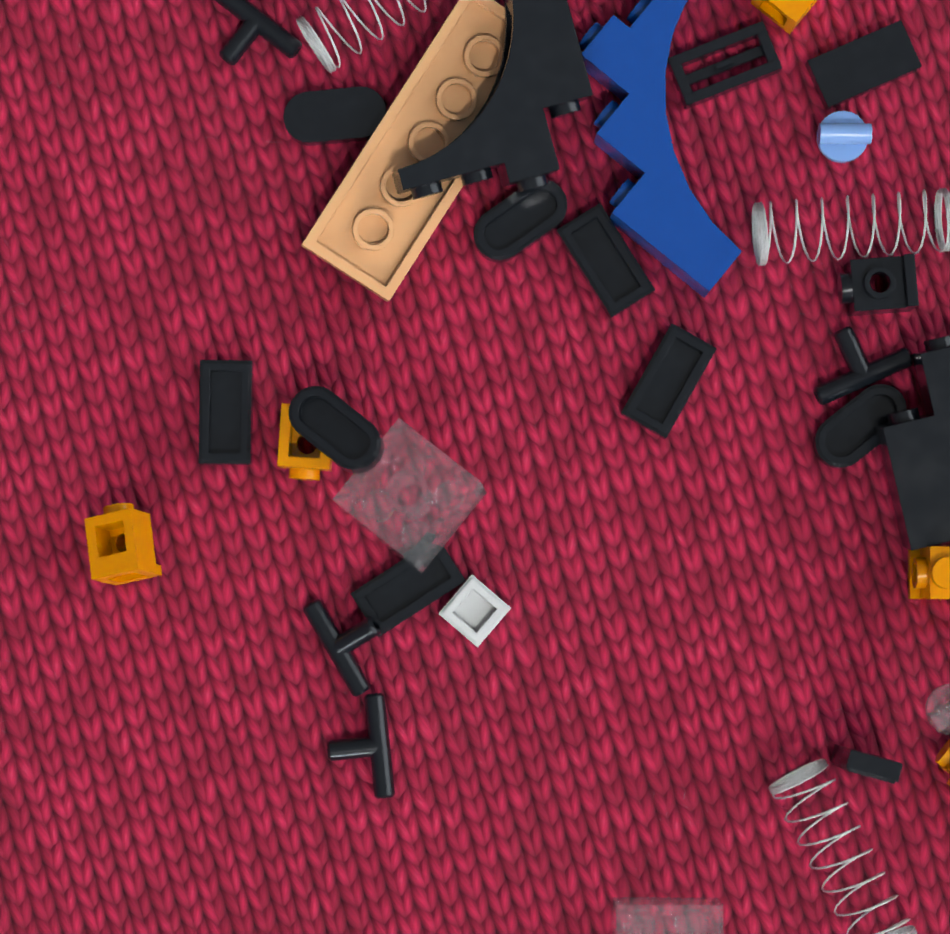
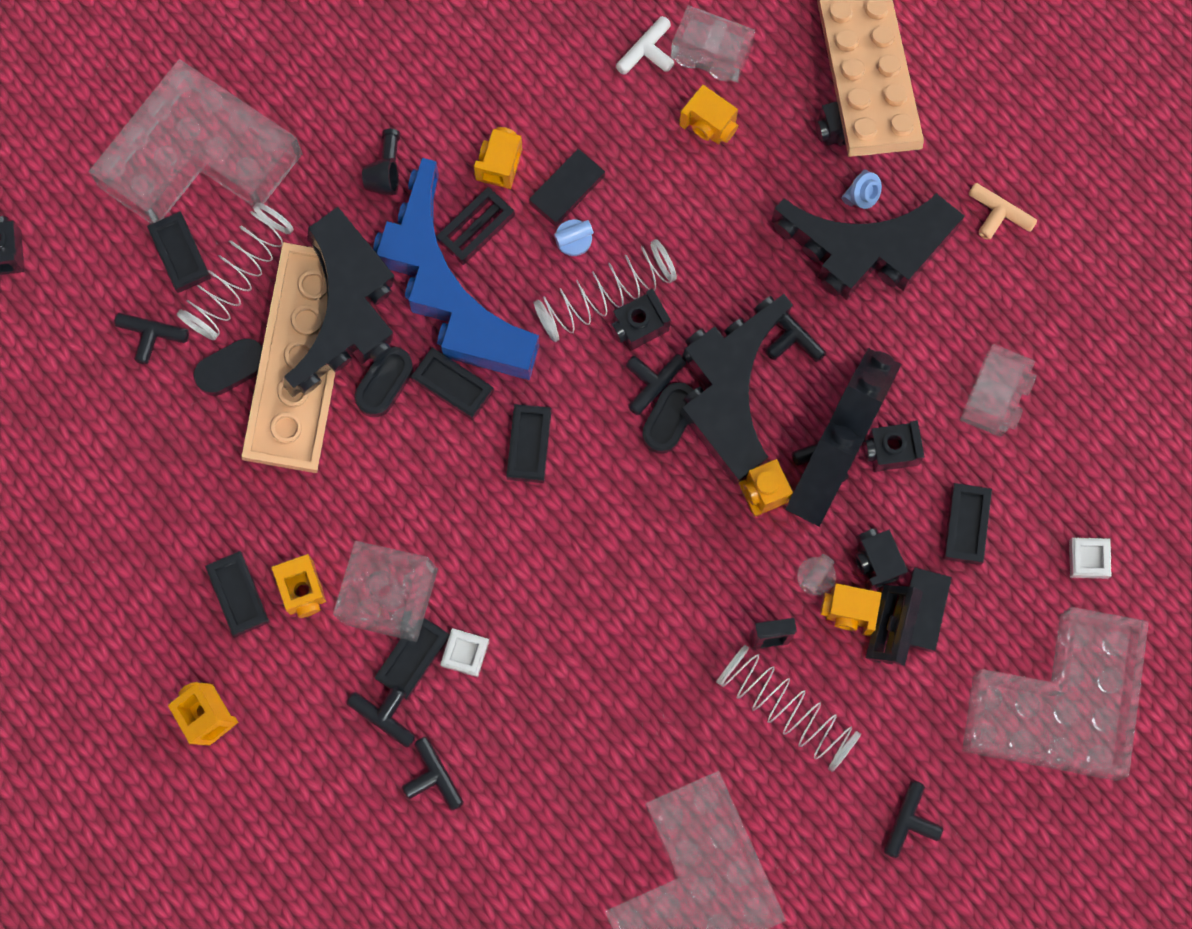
camera: 20 degrees left, 10 degrees down
(336, 429) = (315, 566): black tile -> none

